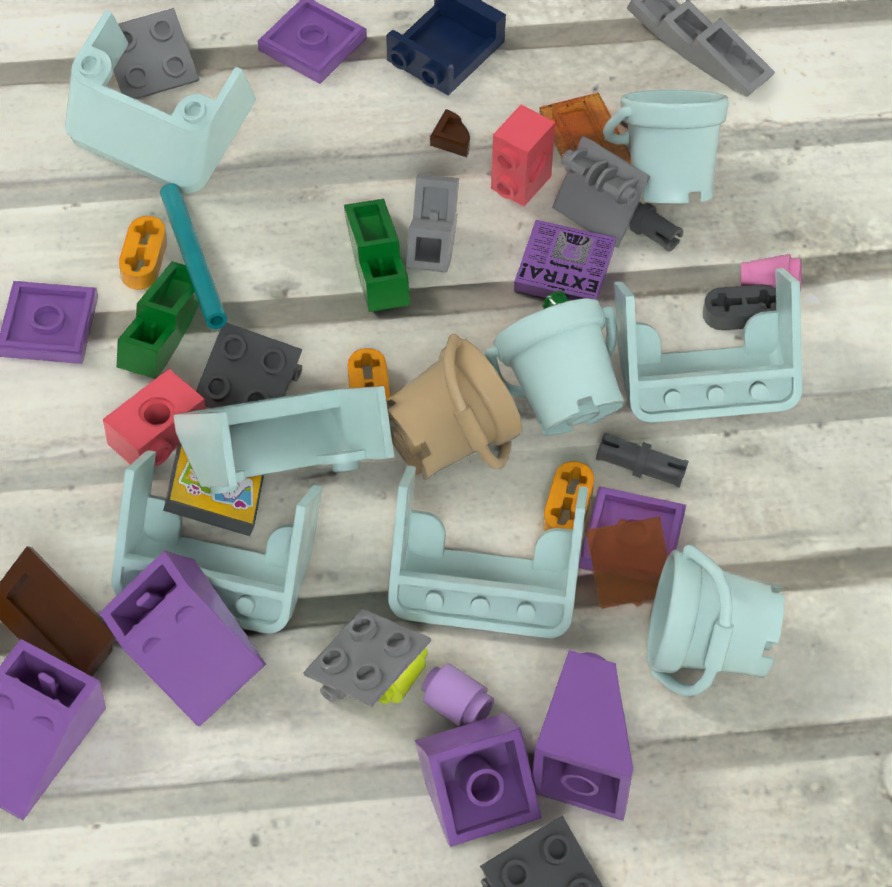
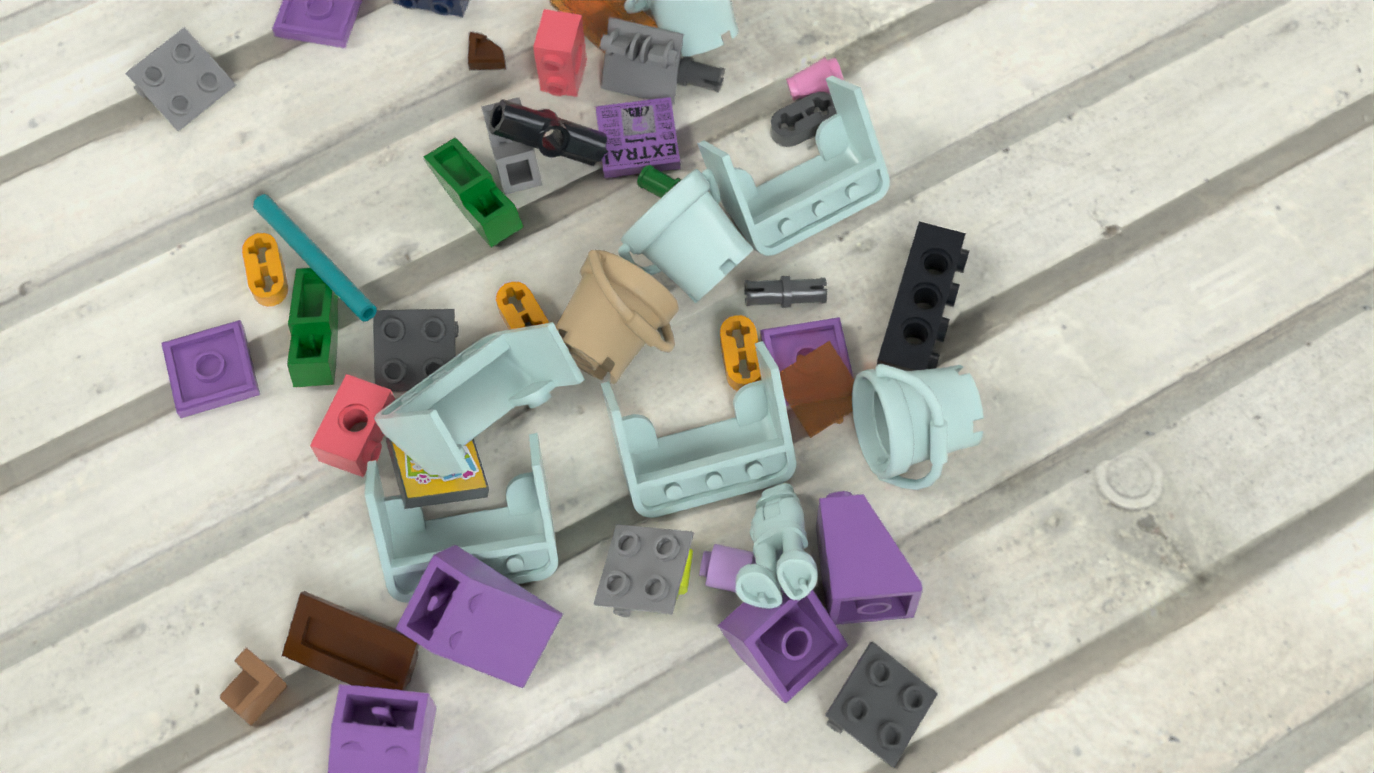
camera: 20 degrees left, 10 degrees up
(158, 145) = (239, 165): light aqua windscreen -> none
(454, 205) = (530, 125): none -> black piece
(506, 690) = (778, 551): none -> light aqua piece
(807, 474) = (931, 249): none -> black brick

